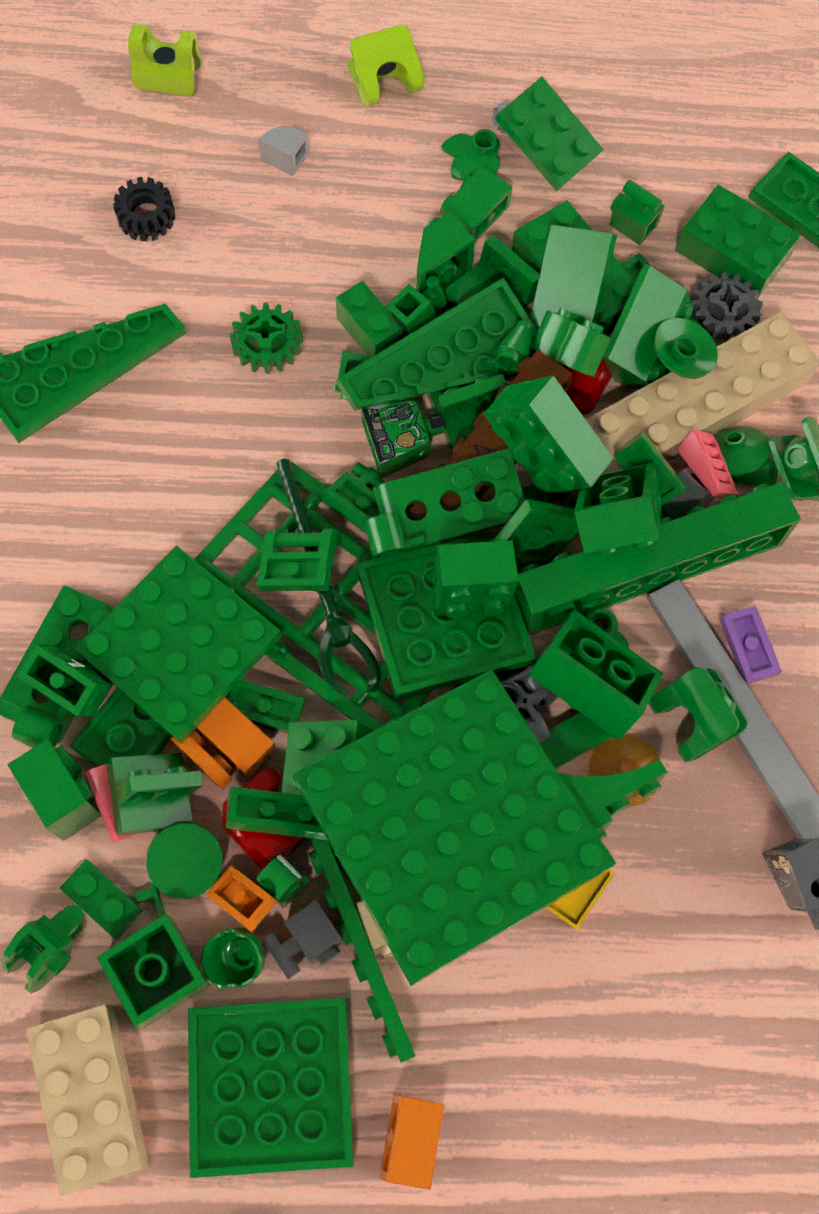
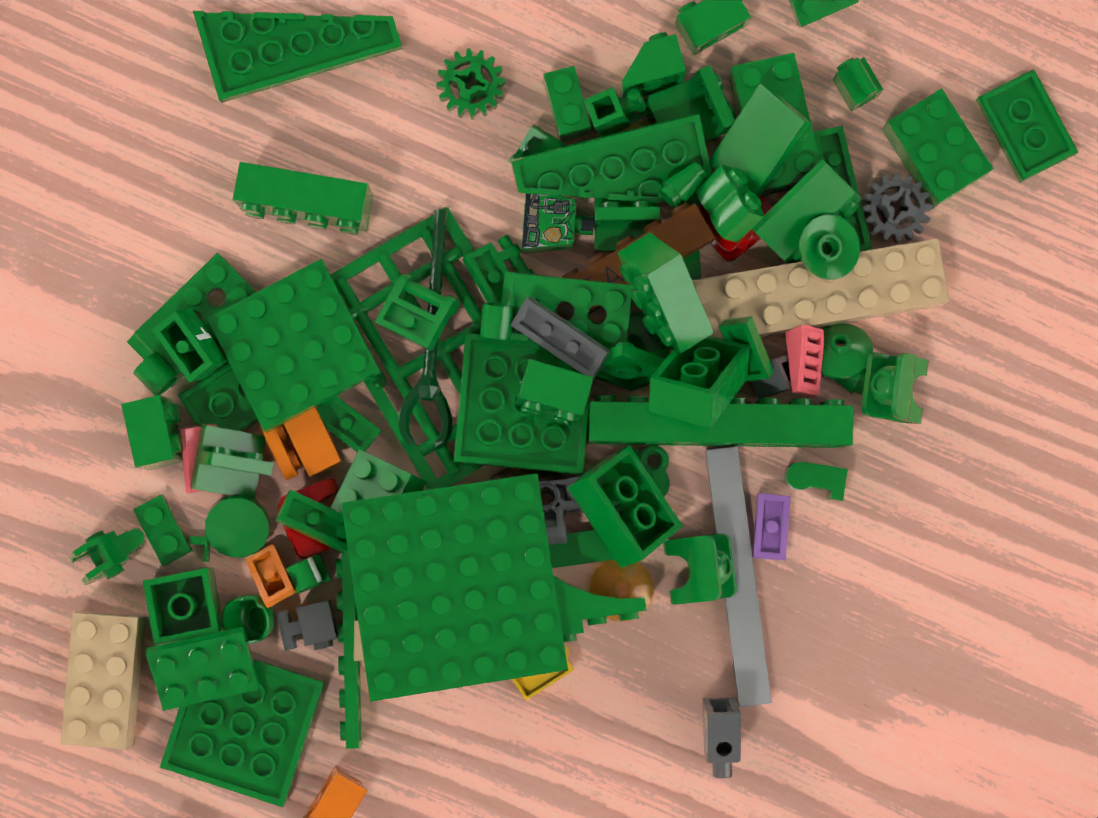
camera: 25 degrees right, 15 degrees up
(135, 493) = (303, 197): none -> green brick
(200, 1034) = (202, 668): none -> green plate
(456, 521) = (560, 337): none -> dark grey plate
(772, 579) = (816, 476): none -> green leg

